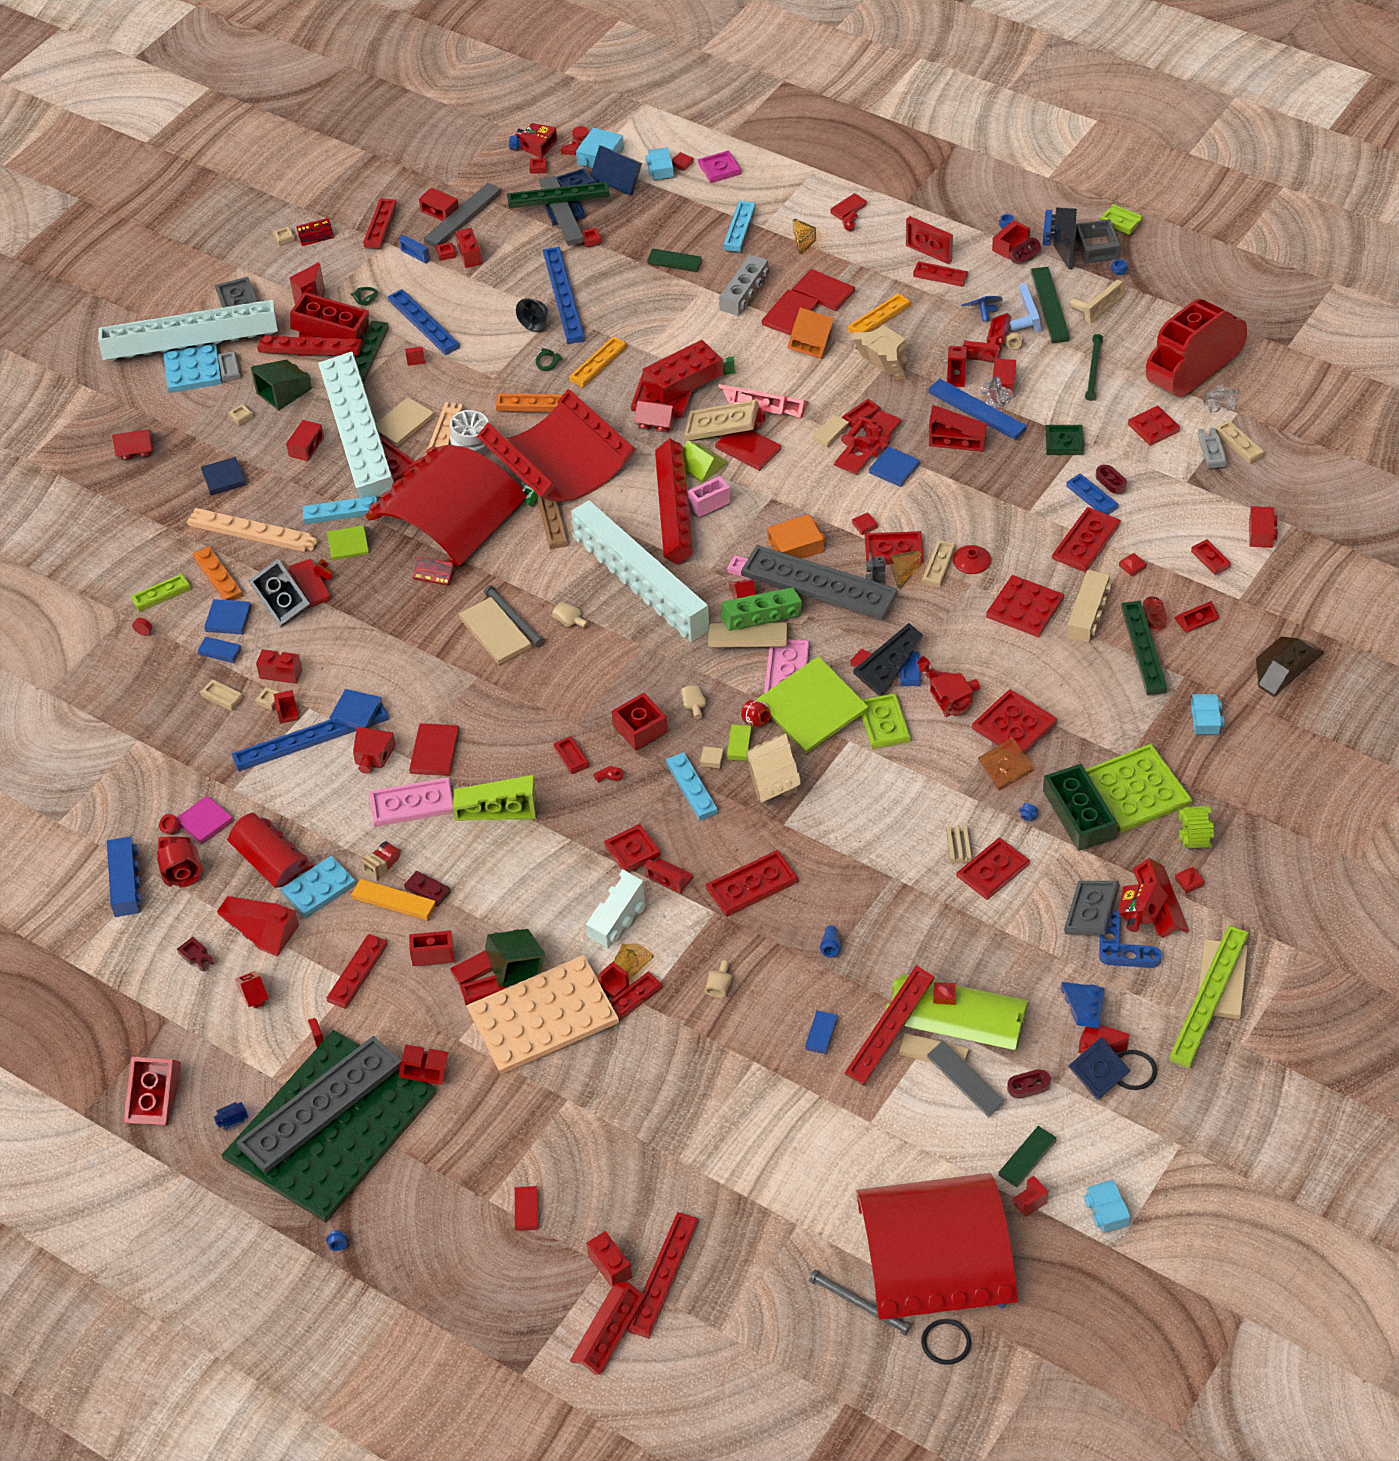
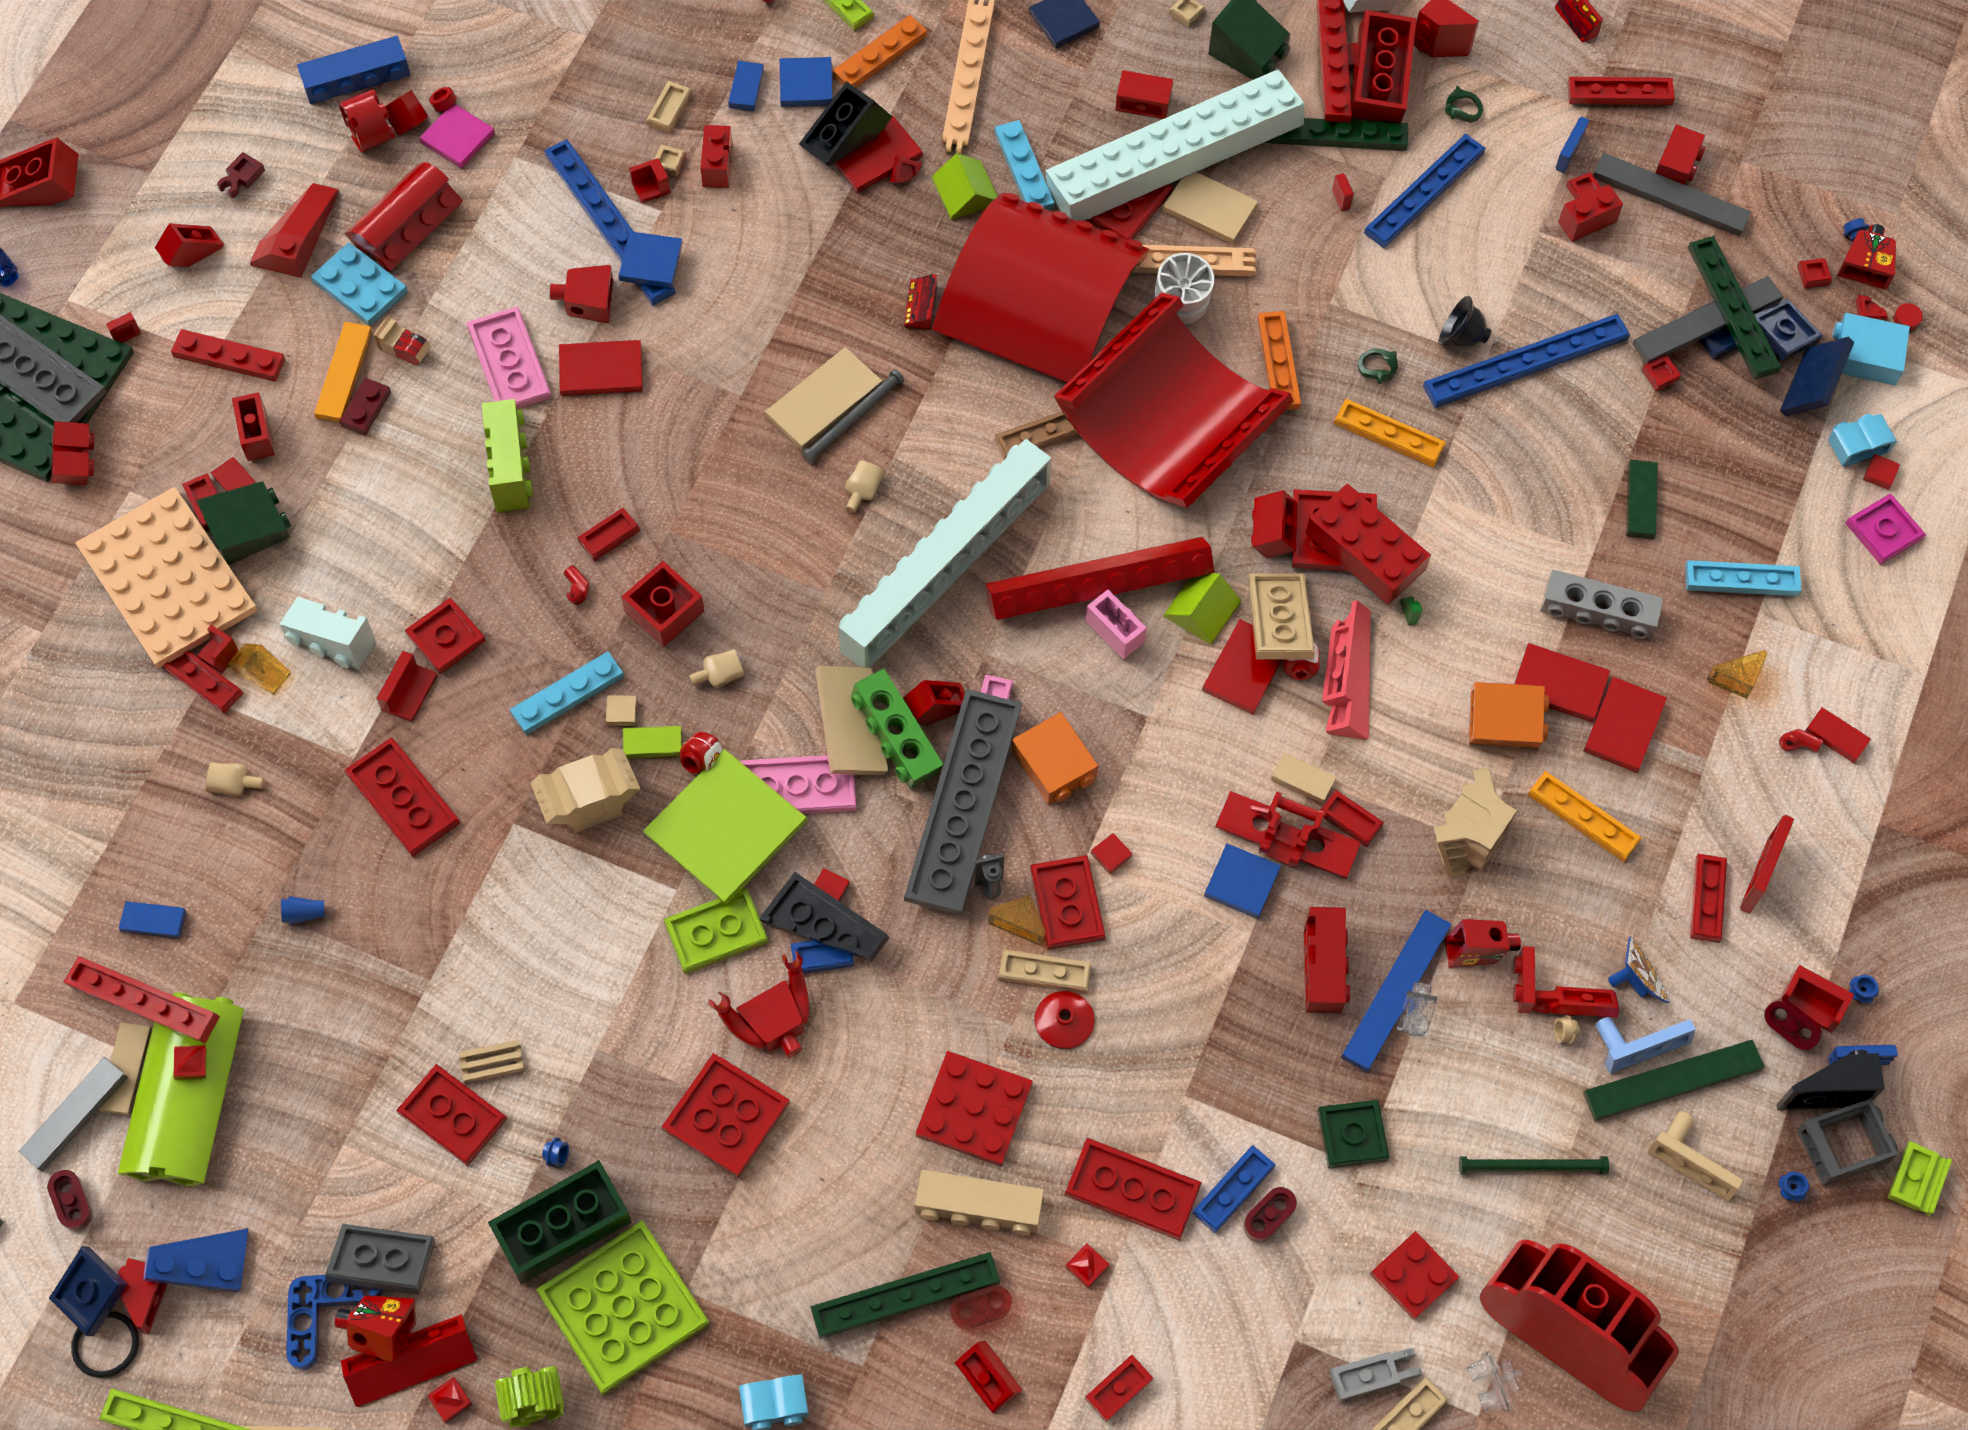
camera: 75 degrees right, 15 degrees up
(1005, 370) = (1470, 1019): red panel -> none
(1005, 764) = (640, 1109): clear orange tile -> none

